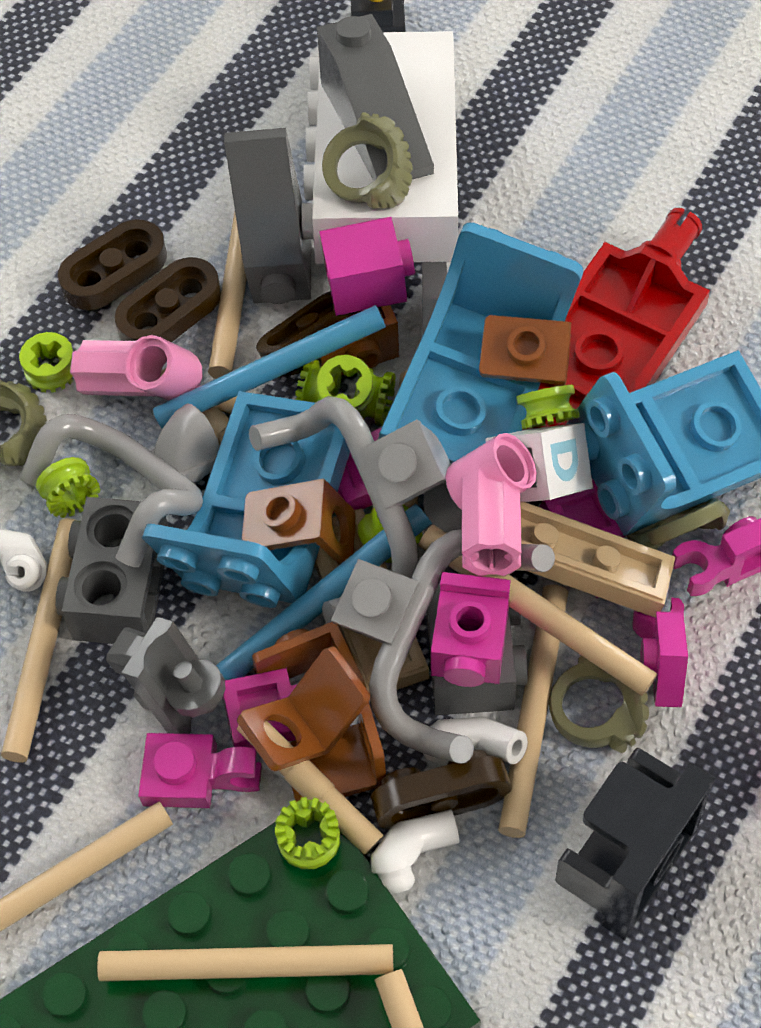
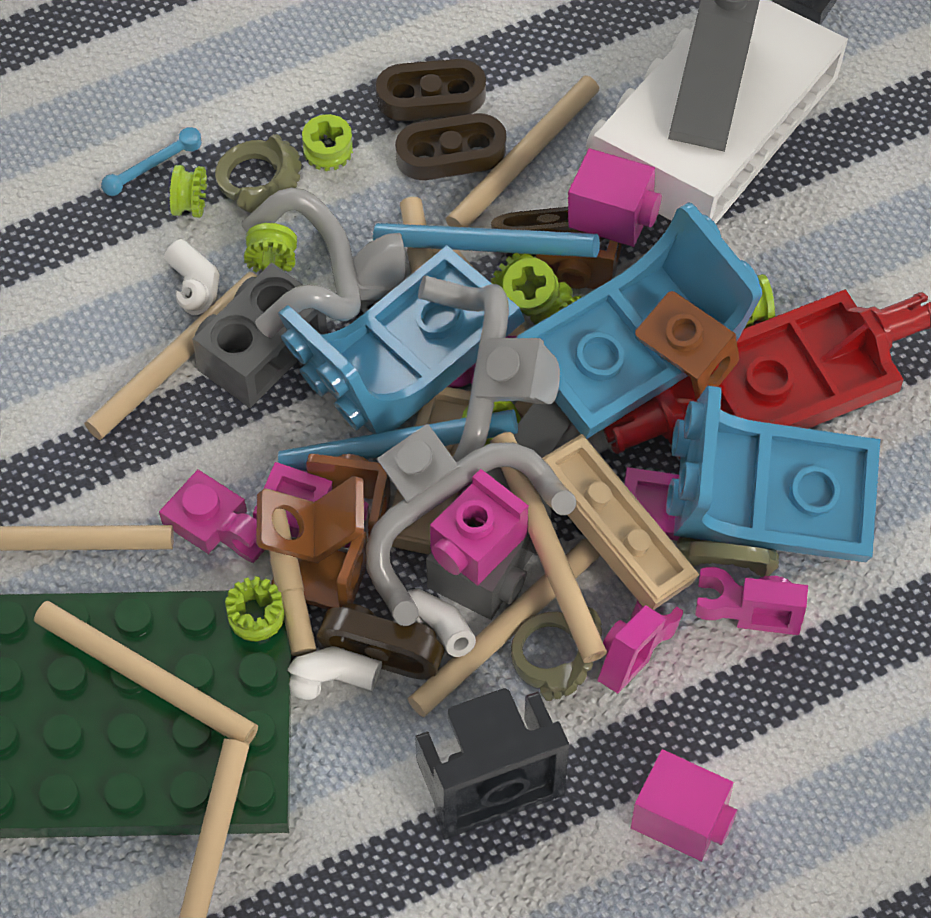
camera: 30 degrees right, 0 degrees up
(135, 368) = (385, 183): bright pink piece -> none
(167, 674) = (234, 431): dark grey hips -> none
(269, 215) = (564, 111): dark grey slope -> none
(300, 516) = (419, 369): bracket -> none
(389, 187) = (678, 141): olive piece -> none
(488, 492) = (552, 436): bright pink piece -> none
(546, 405) = (666, 389): lime bush -> none
(559, 461) = (626, 432): white brick -> none

